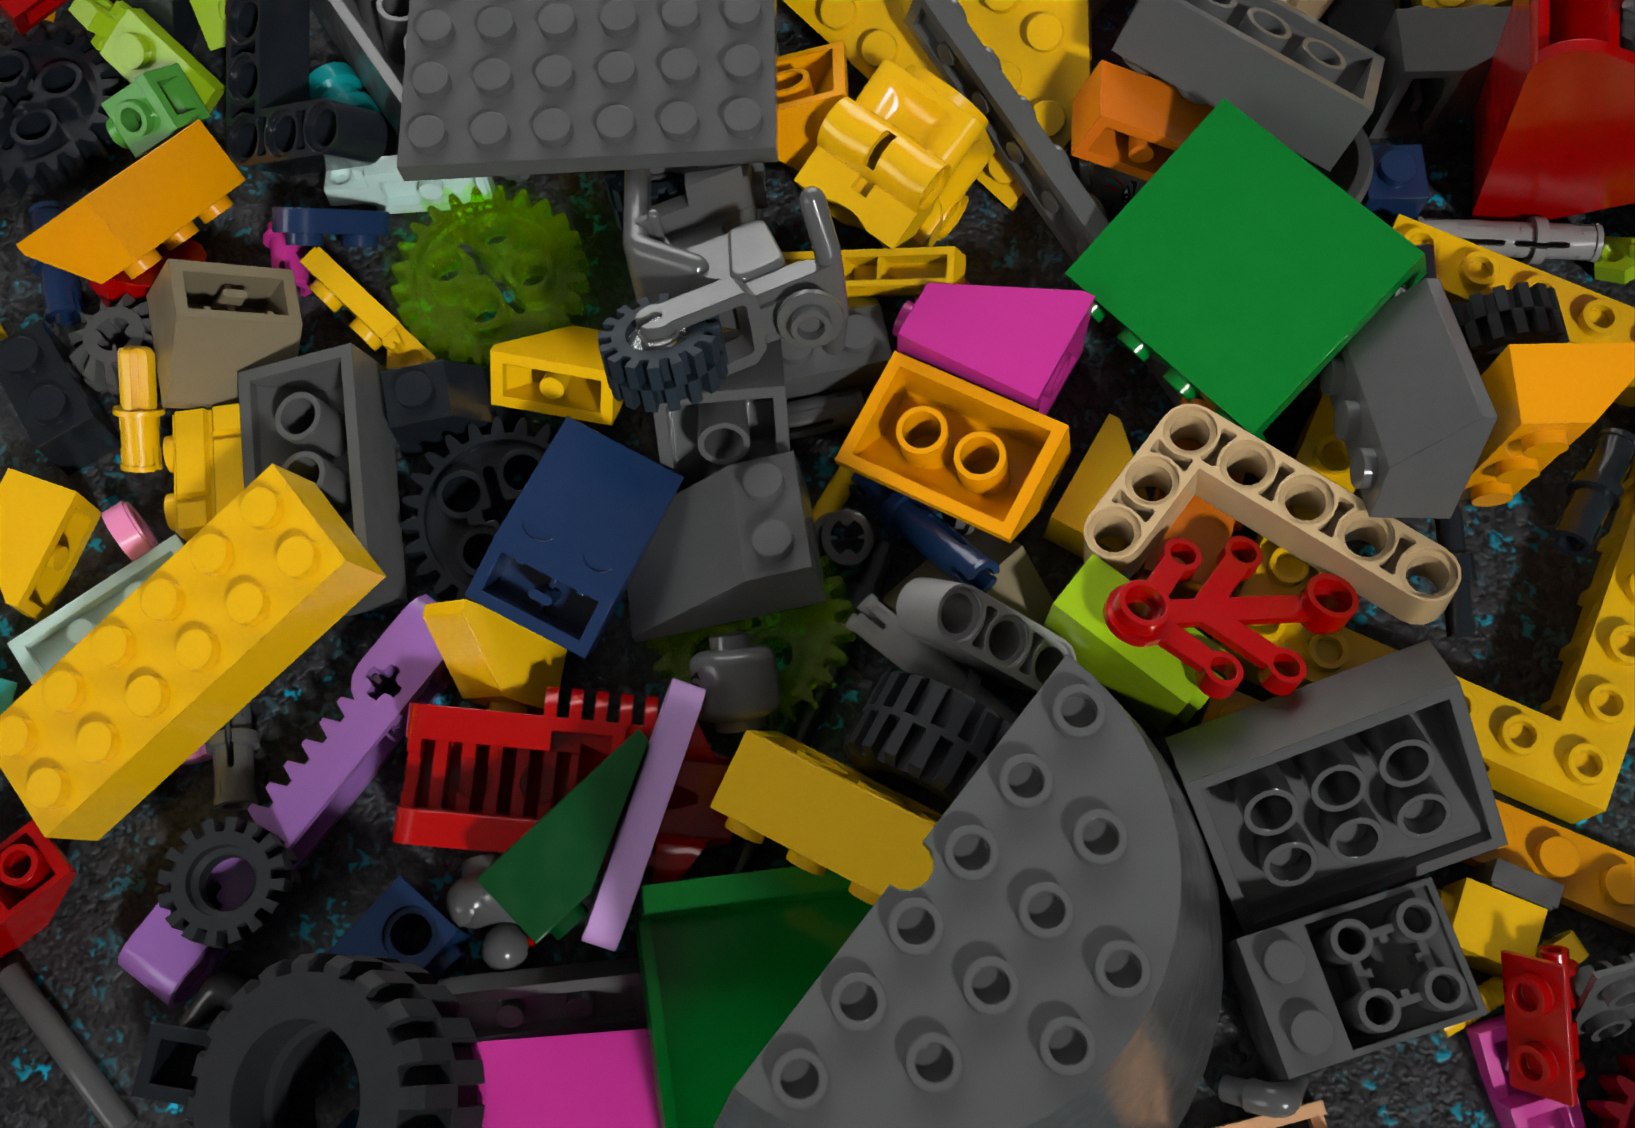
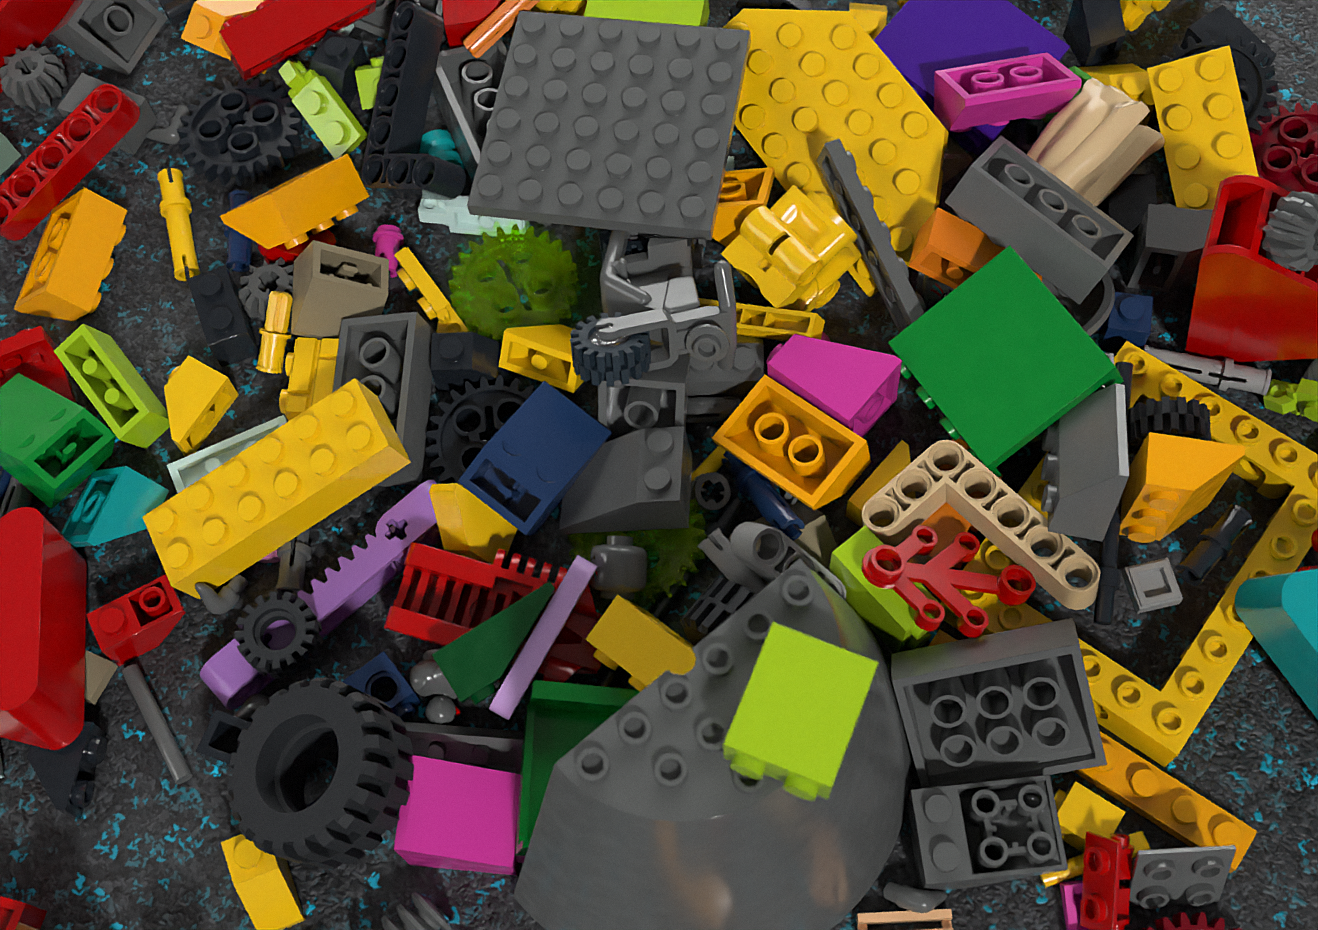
camera: 15 degrees right, 5 degrees down
(129, 530) = (255, 407): bright pink tile -> none
(138, 834) = (225, 599): none -> dark grey animal
(144, 117) = (313, 146): bright green brick -> none
(308, 225) = (404, 232): dark blue plate -> none
(1139, 929) = (799, 712): none -> lime brick
(1518, 567) = (1152, 585): none -> light grey tile
(1519, 883) = (1114, 794): flat silver tile -> none

